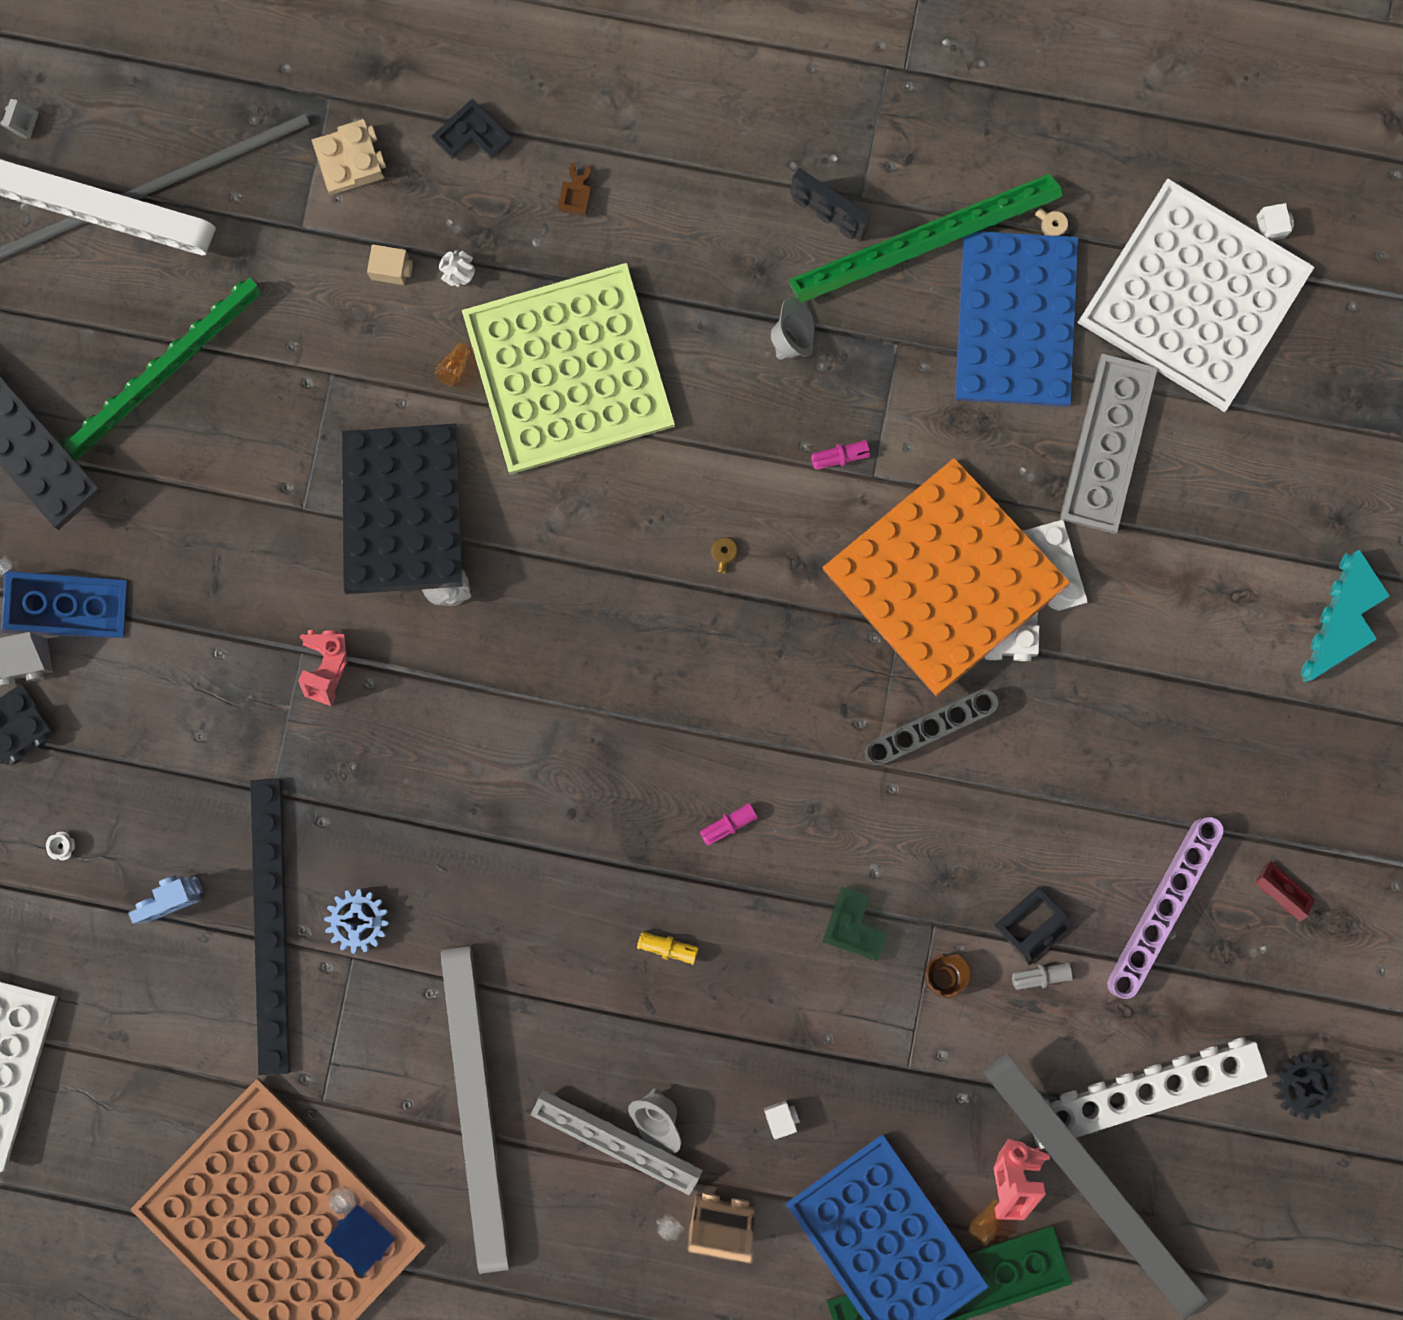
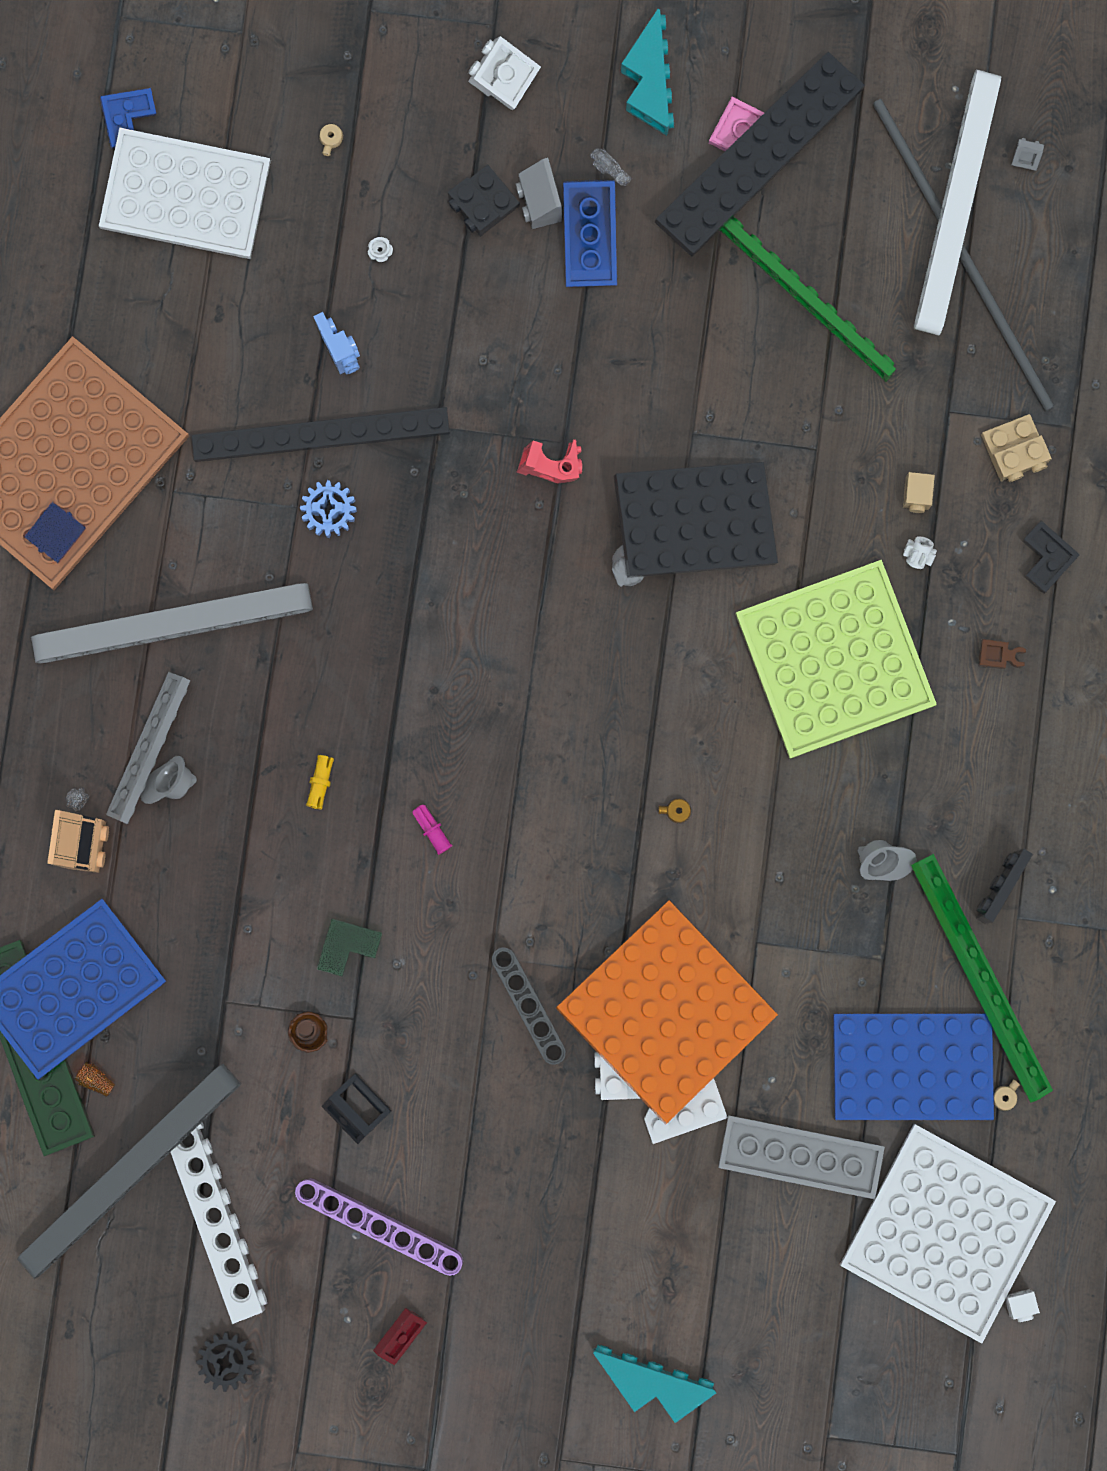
camera: 90 degrees right, 0 degrees up
(342, 1200) = (87, 514): clear plate -> none
(451, 367) = (830, 555): clear orange cone -> none
(781, 1119) = (175, 891): white plate -> none
(840, 455) = (773, 910): dark pink axle -> none
(1015, 1193) = (119, 1100): coral tile -> none
(1042, 976) = (312, 1117): light grey axle -> none

